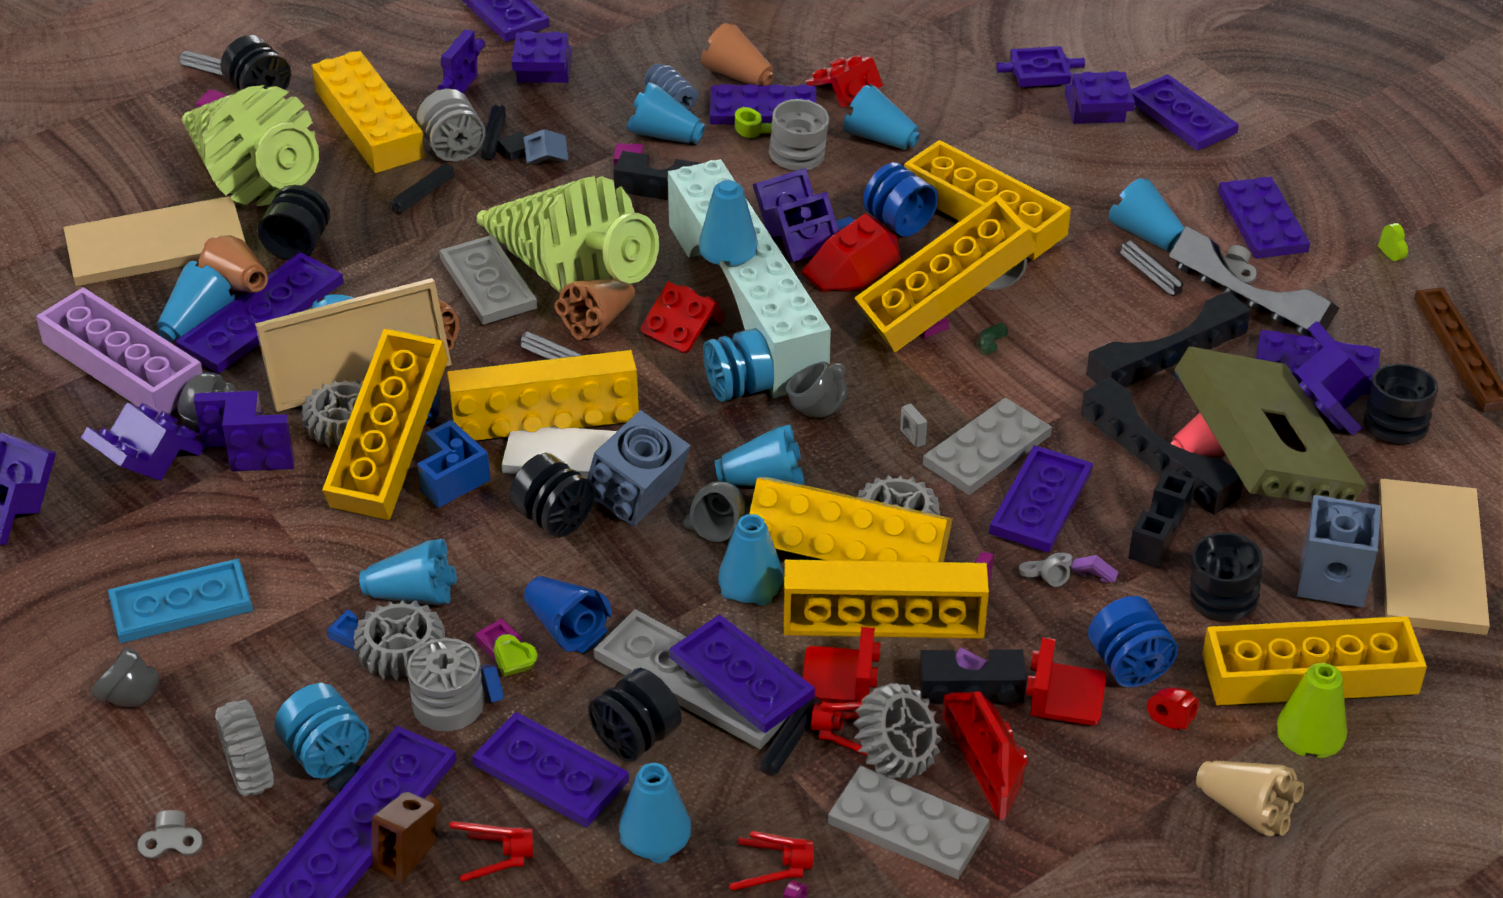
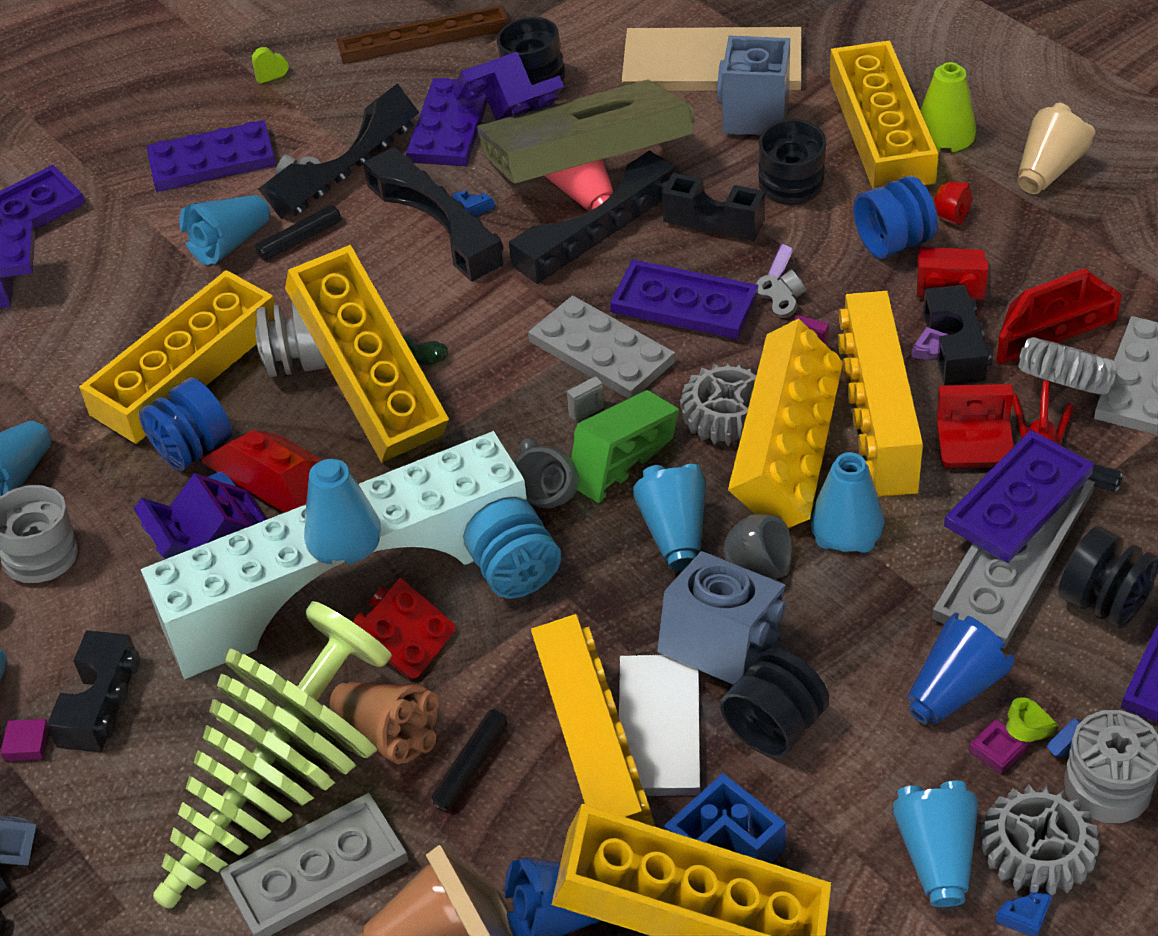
camera: 90 degrees left, 5 degrees up
(856, 436) = (618, 439): none -> bright green wedge

